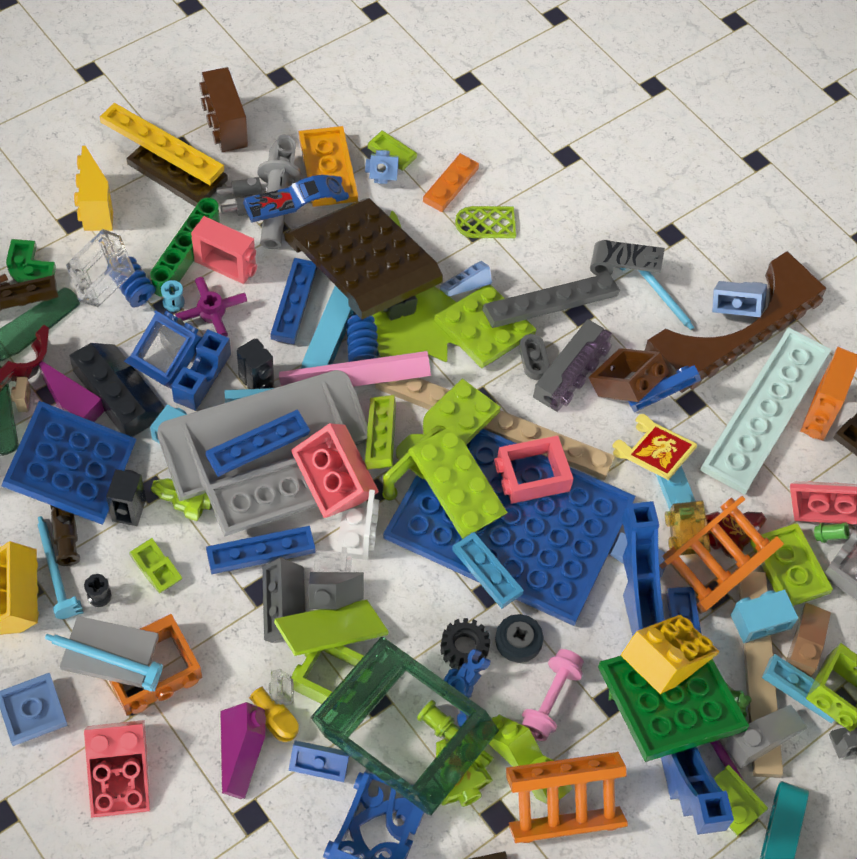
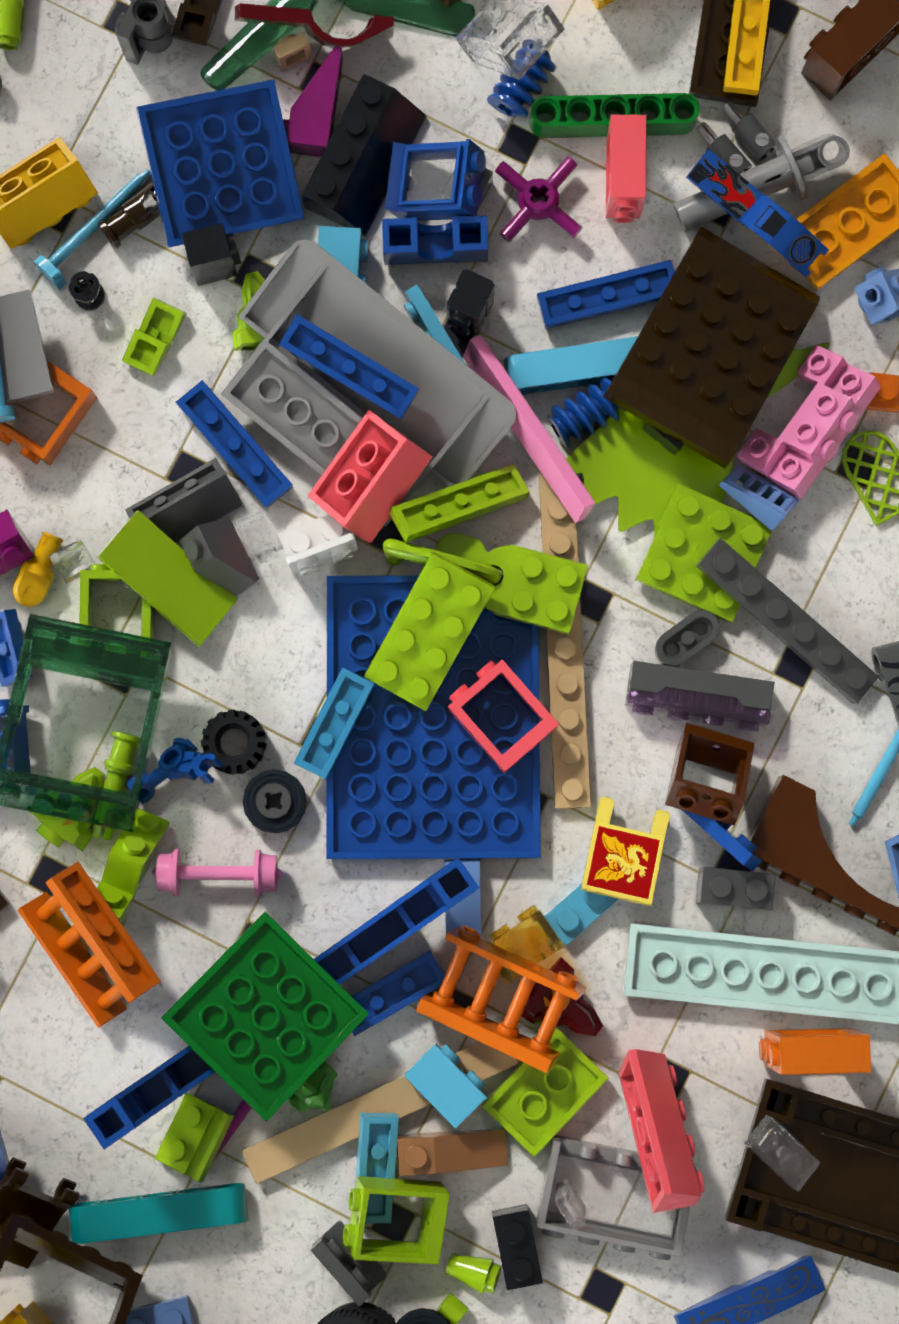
camera: 70 degrees right, 25 degrees up
(169, 296) = (526, 152): medium azure bush -> none
(444, 233) = (818, 425): none -> bright pink bracket
(668, 652) = (314, 990): yellow slope -> none
(705, 400) = (735, 888): none -> dark grey brick
(764, 735) = (291, 1148): light grey slope -> none
(831, 532) = (615, 1118): bright green pin -> none

